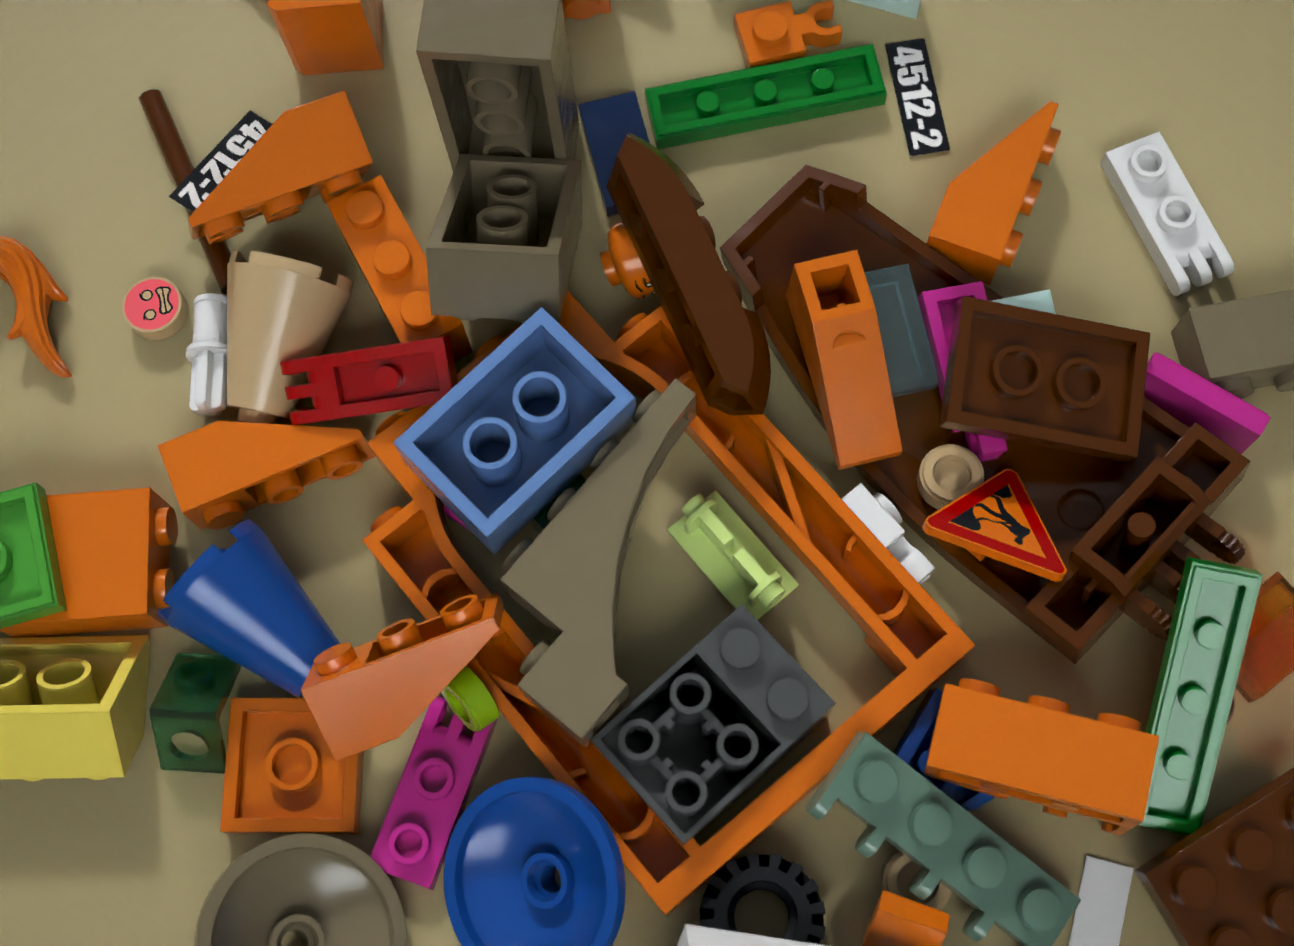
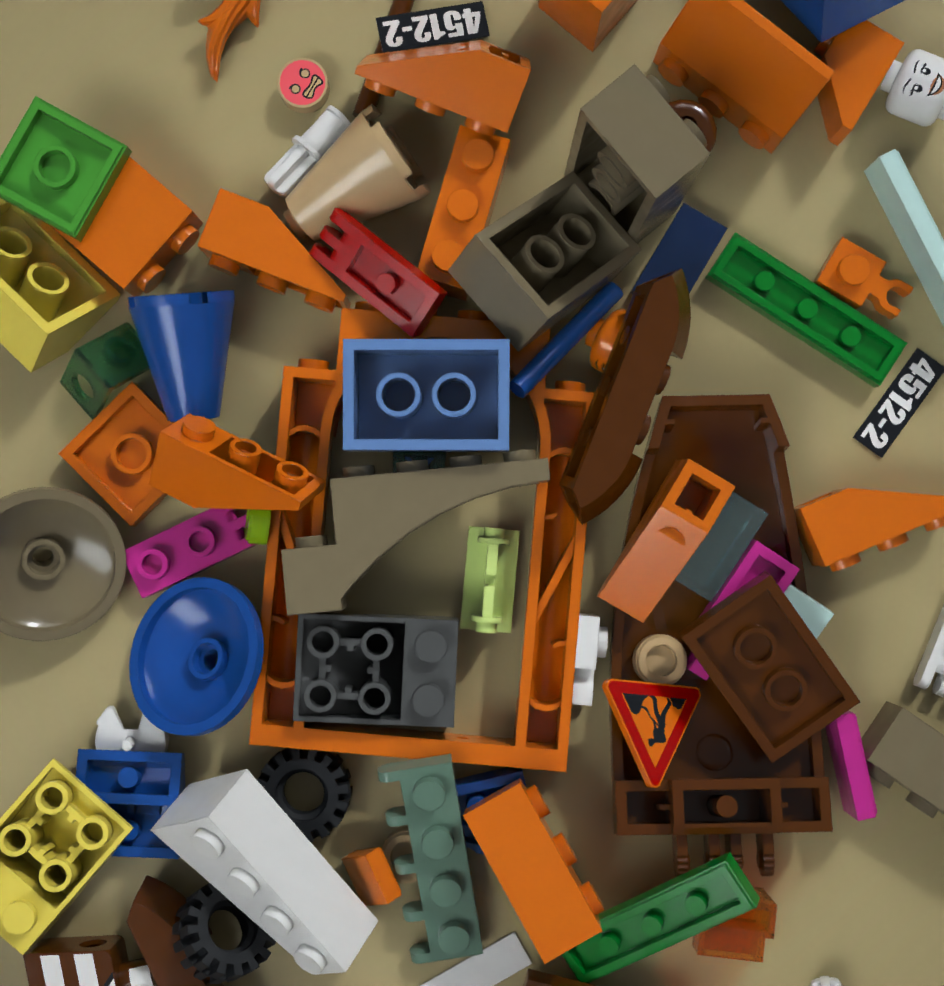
camera: 40 degrees right, 15 degrees up
(591, 283) = (565, 339): none -> blue bar

